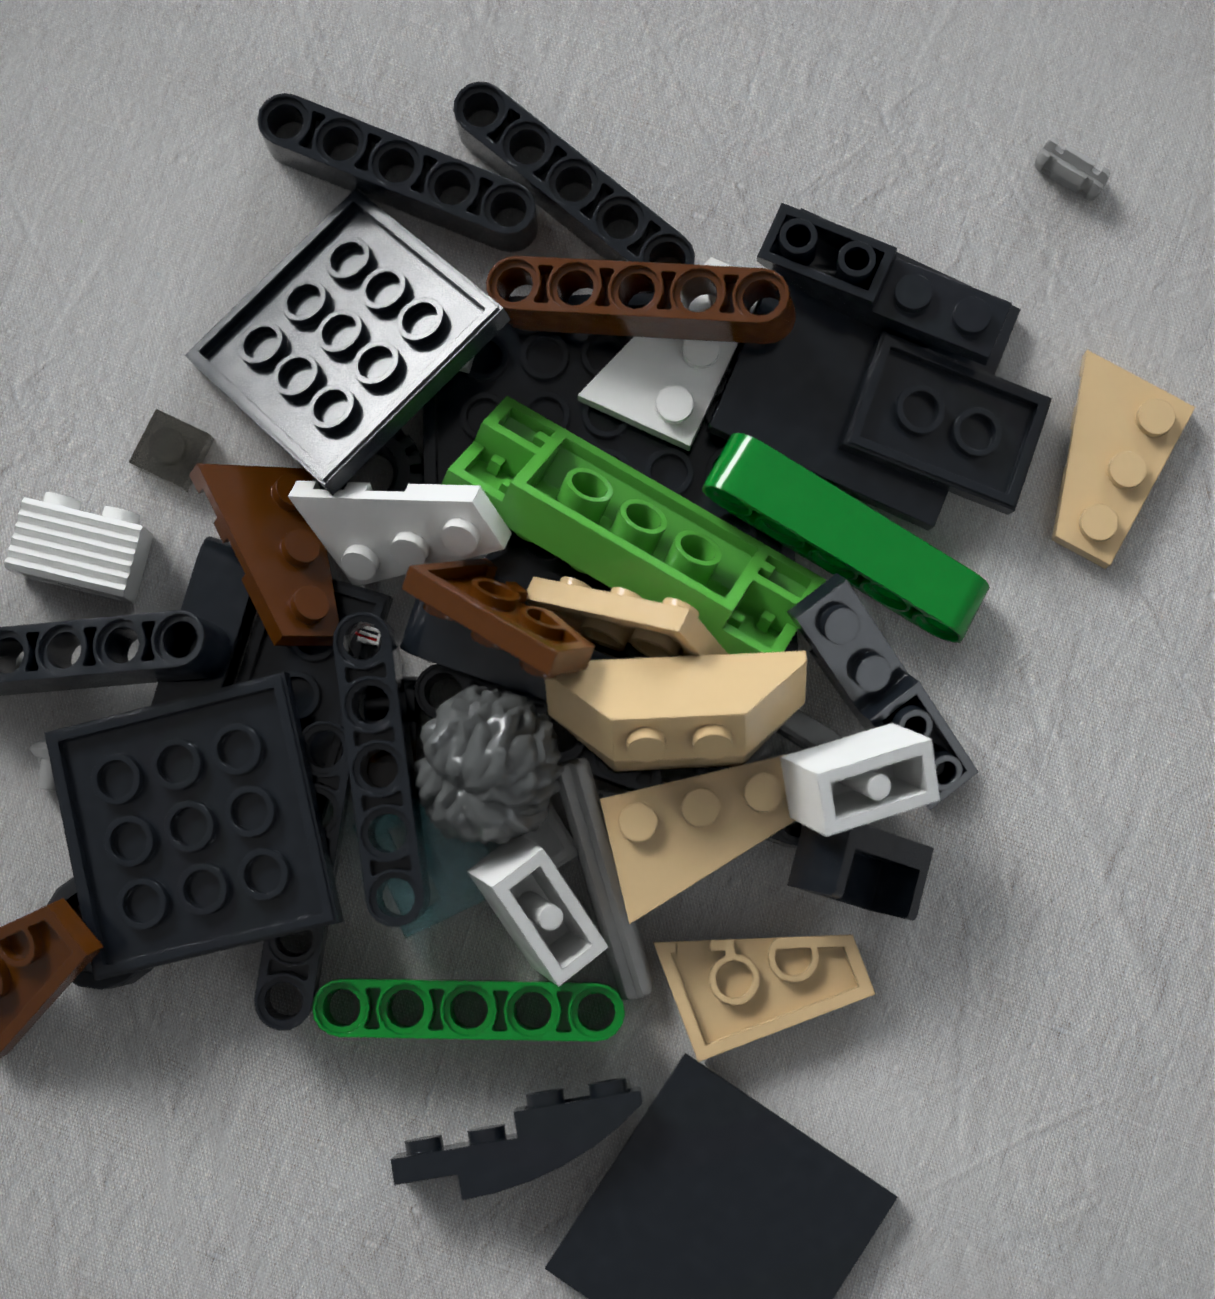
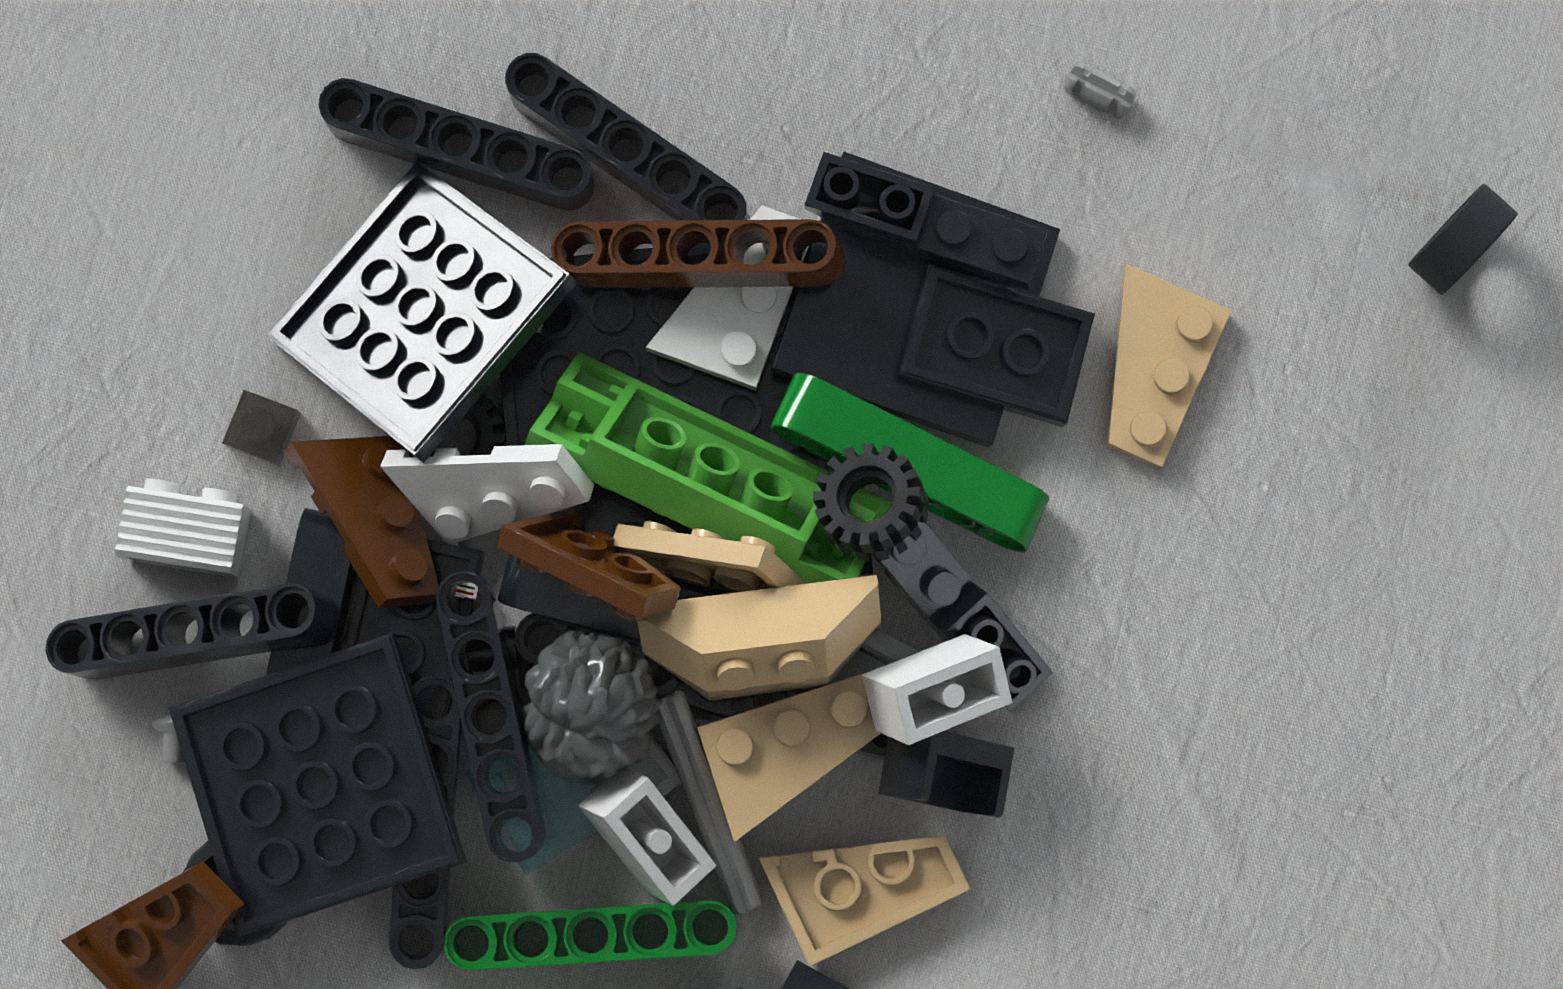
camera: 10 degrees left, 0 degrees up
(796, 540) = (856, 473): none -> black tyre

